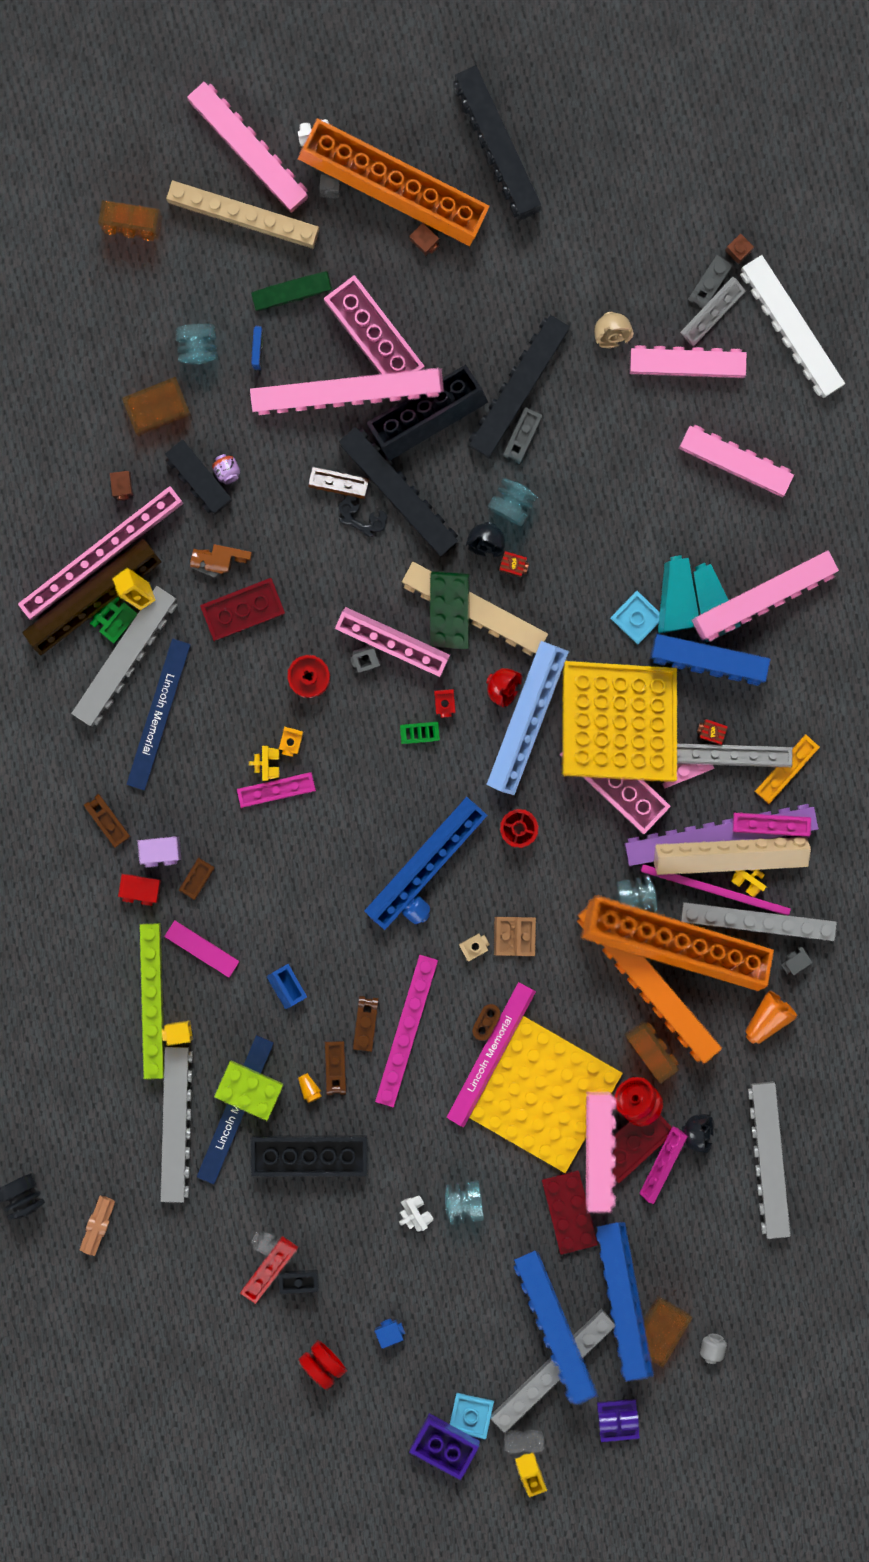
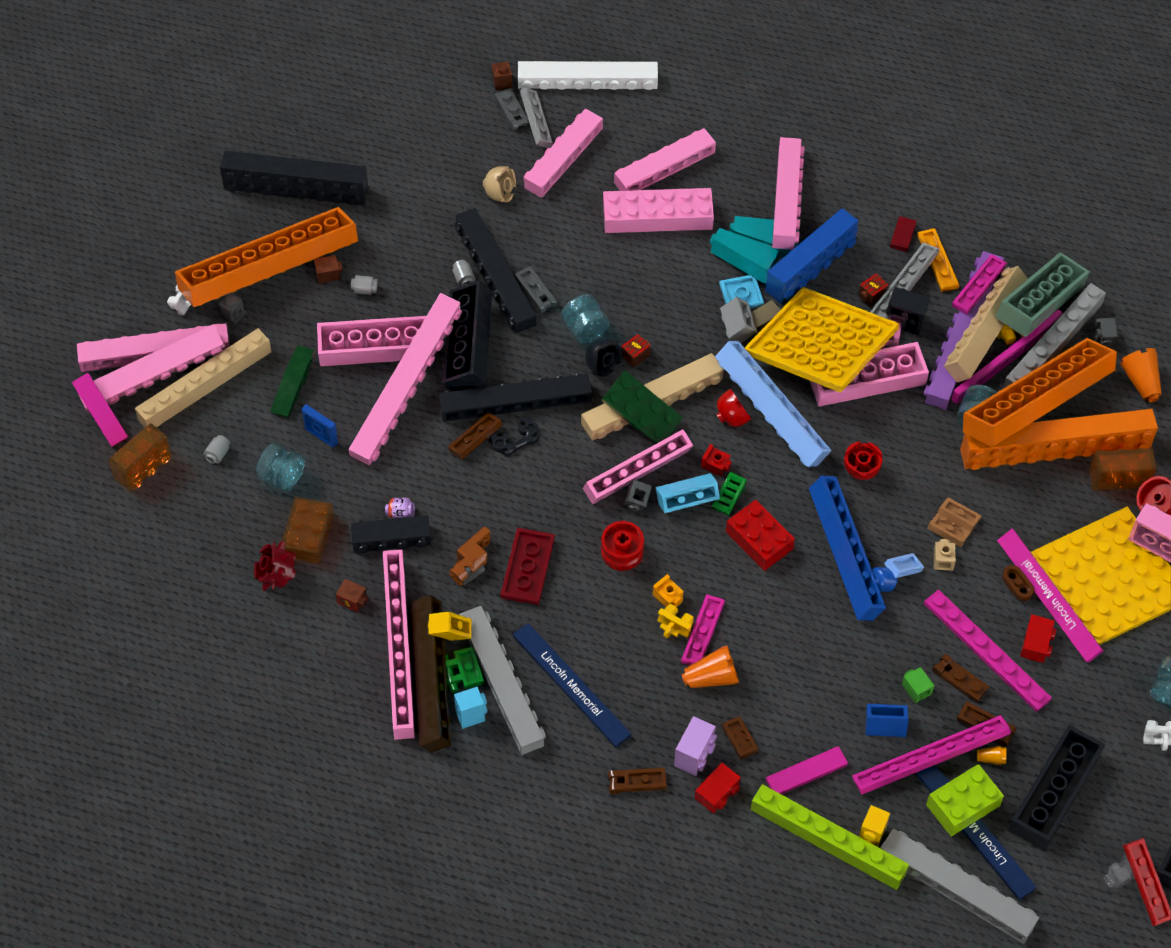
camera: 60 degrees left, 30 degrees down
(79, 651) = (470, 707): none -> medium azure brick
(102, 406) = (275, 566): none -> dark red brick
(153, 151) = (100, 409): none -> dark pink tile
(184, 275) = (217, 449): none -> light grey brick
(219, 164) = (159, 365): none -> bright pink brick
(239, 822) = (712, 670): none -> orange cone
(275, 1041) = (931, 754): none -> dark pink plate
(335, 993) = (917, 684): none -> bright green brick
(393, 783) = (760, 535): none -> red brick
(394, 699) = (687, 493): none -> medium azure brick
(429, 283) = (364, 285): none -> light grey brick
(440, 920) = (904, 565): none -> light blue tile
(441, 1067) = (1037, 639): none -> red brick
(497, 361) = (463, 273): none -> light grey brick
(600, 634) = (738, 320): none -> light grey brick
(623, 650) = (764, 314): none -> dark tan tile
(676, 489) = (658, 210): none -> bright pink brick
(703, 777) = (909, 308): none -> black brick
(793, 887) = (1042, 294): none -> sand green brick
(796, 721) = (903, 234): none -> dark red tile

